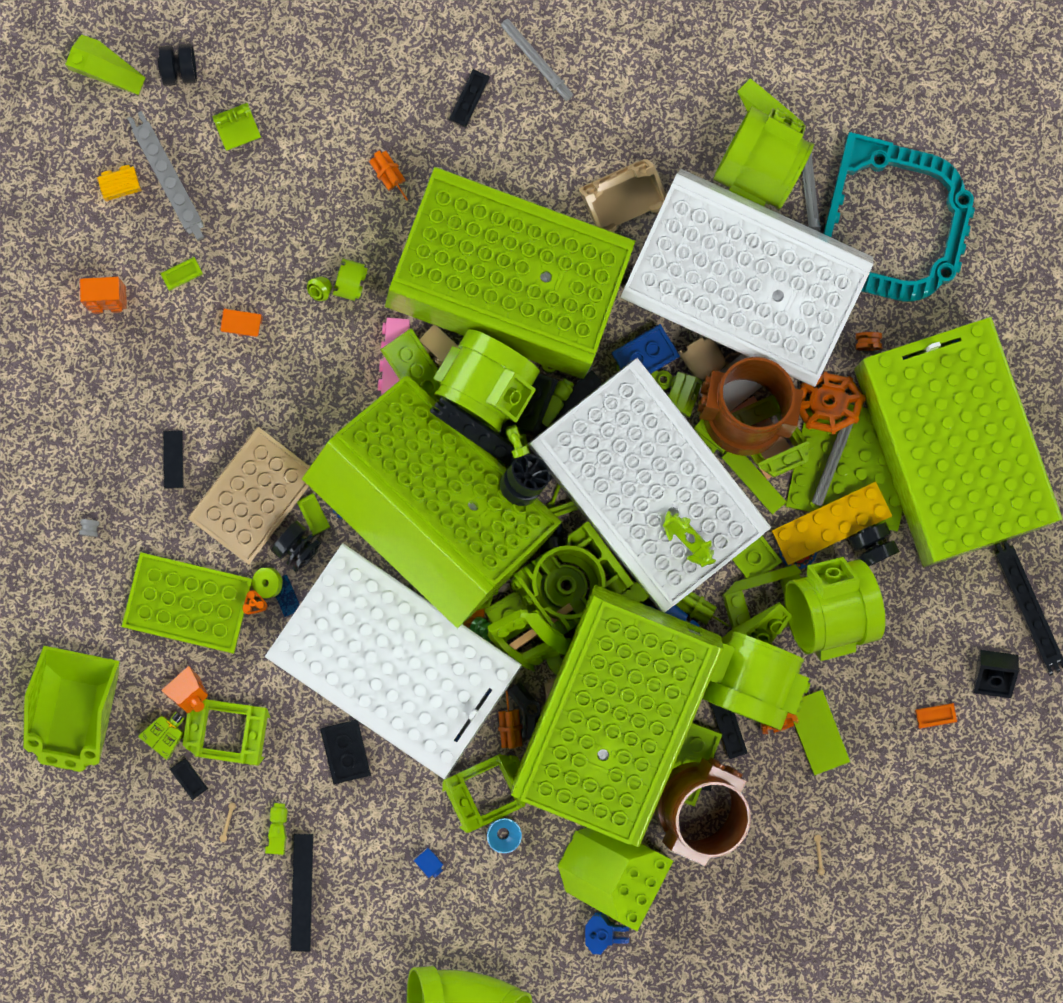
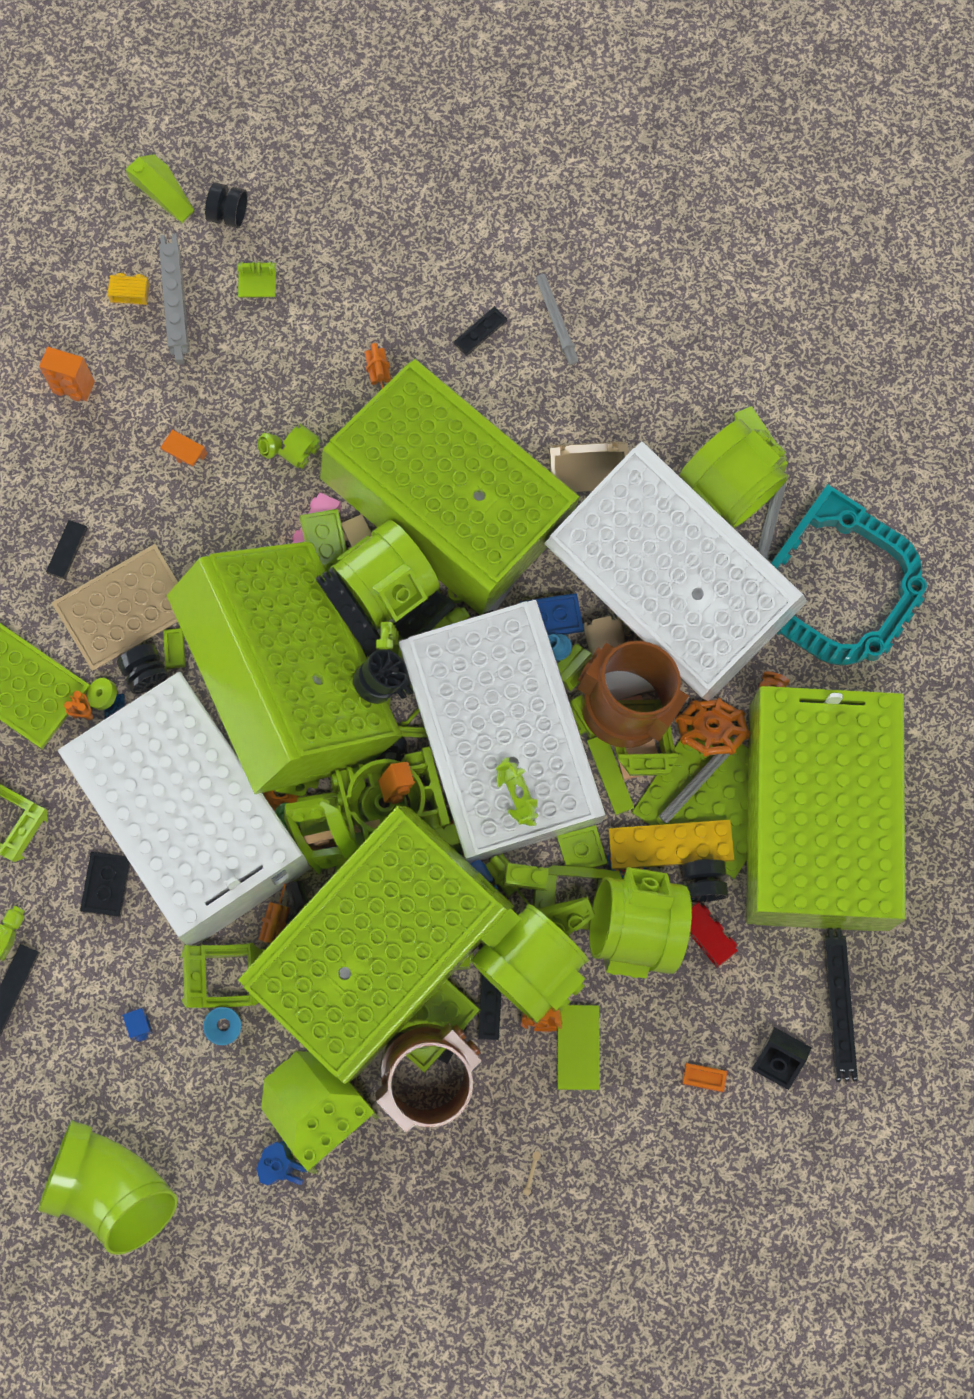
camera: 25 degrees right, 10 degrees down
(181, 273) = (149, 388): lime tile -> none
(572, 565) = (396, 782): none -> orange brick
(666, 380) = (560, 645): none -> dark azure piece
(717, 604) = (525, 876): none -> lime brick
(897, 592) = (710, 936): none -> red brick

